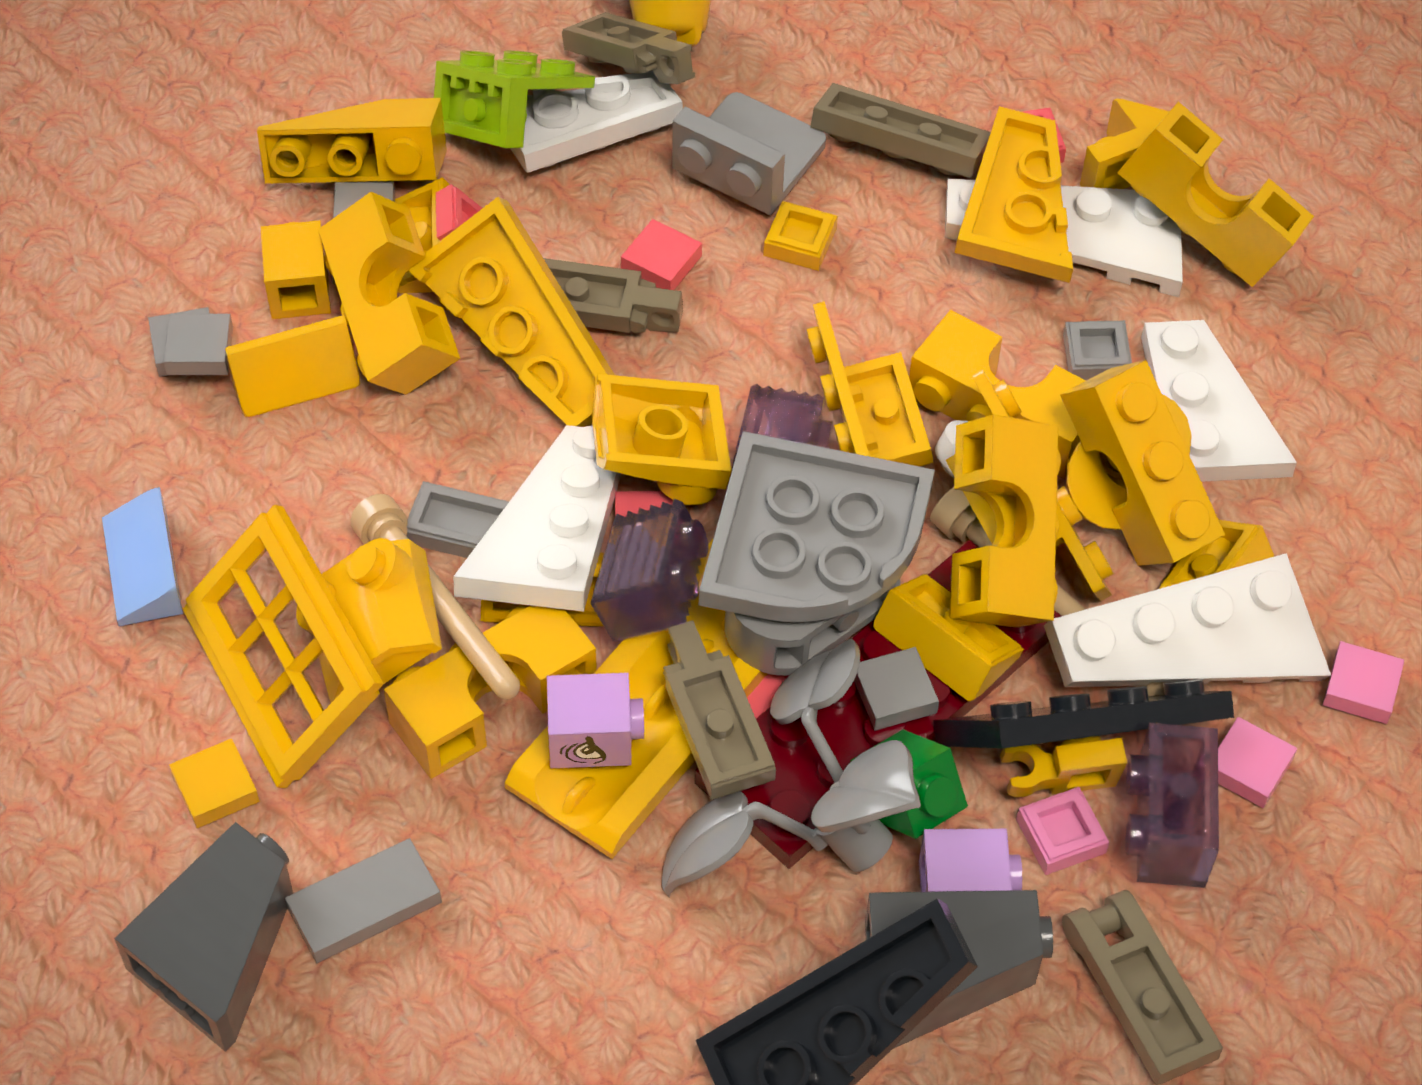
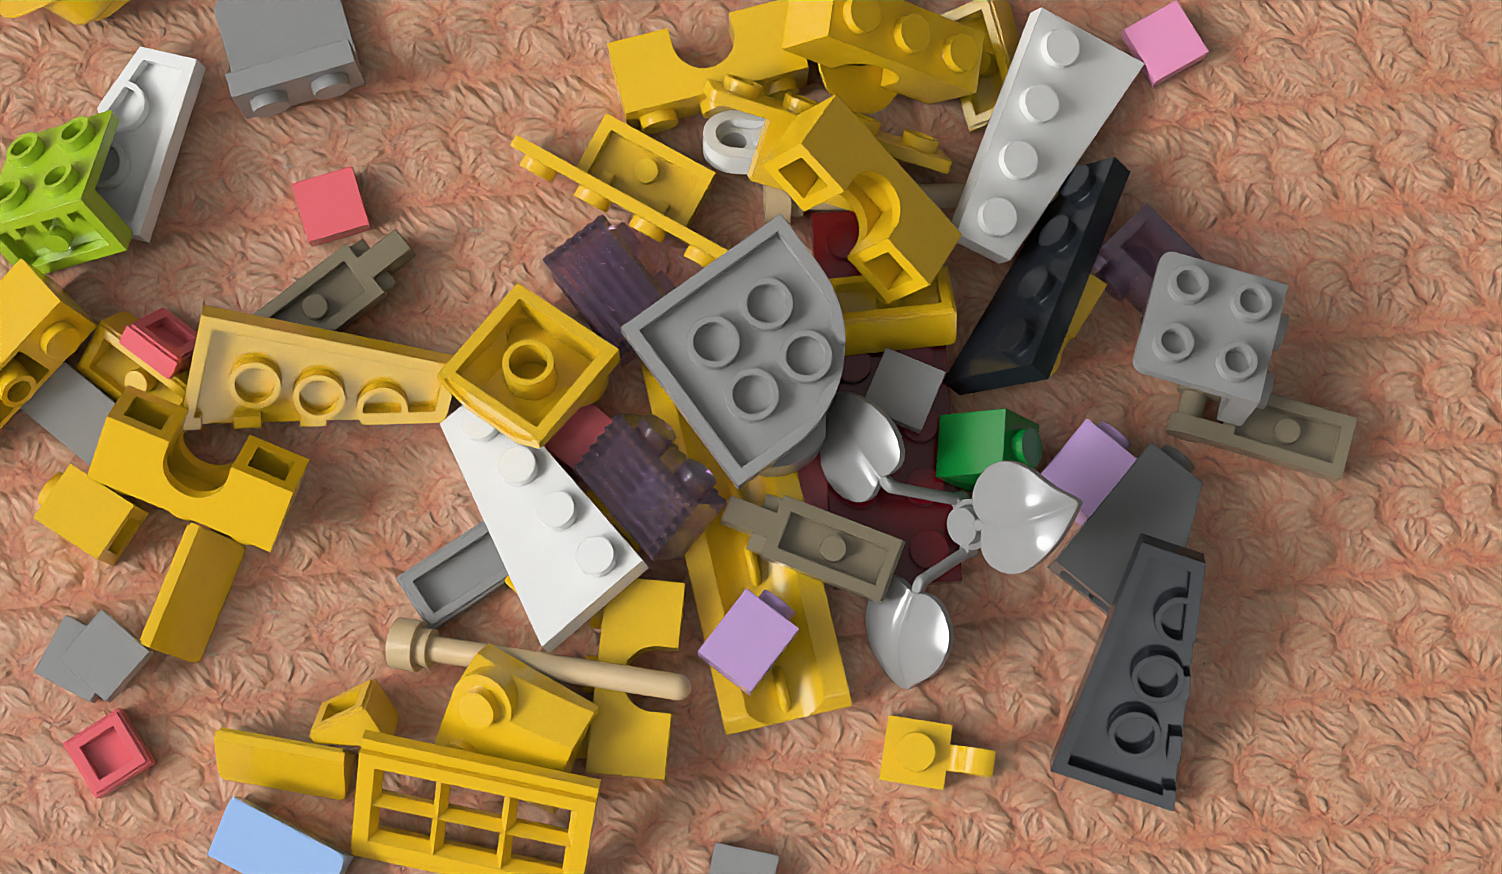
camera: 50 degrees left, 25 degrees up
(127, 407) = (109, 753): none -> coral tile
(210, 500) = (283, 763): none -> yellow slope
(311, 526) = (347, 715): none -> yellow slope
(626, 941) = (921, 754): none -> yellow plate
(631, 45) = (98, 49): dark tan hinge -> none
(800, 235) = (407, 78): yellow tile -> none
(1062, 830) = (1097, 366): bright pink tile -> none
(1170, 858) = (1213, 332): none -> light grey bracket
(1253, 761) = (1161, 182): bright pink tile -> none

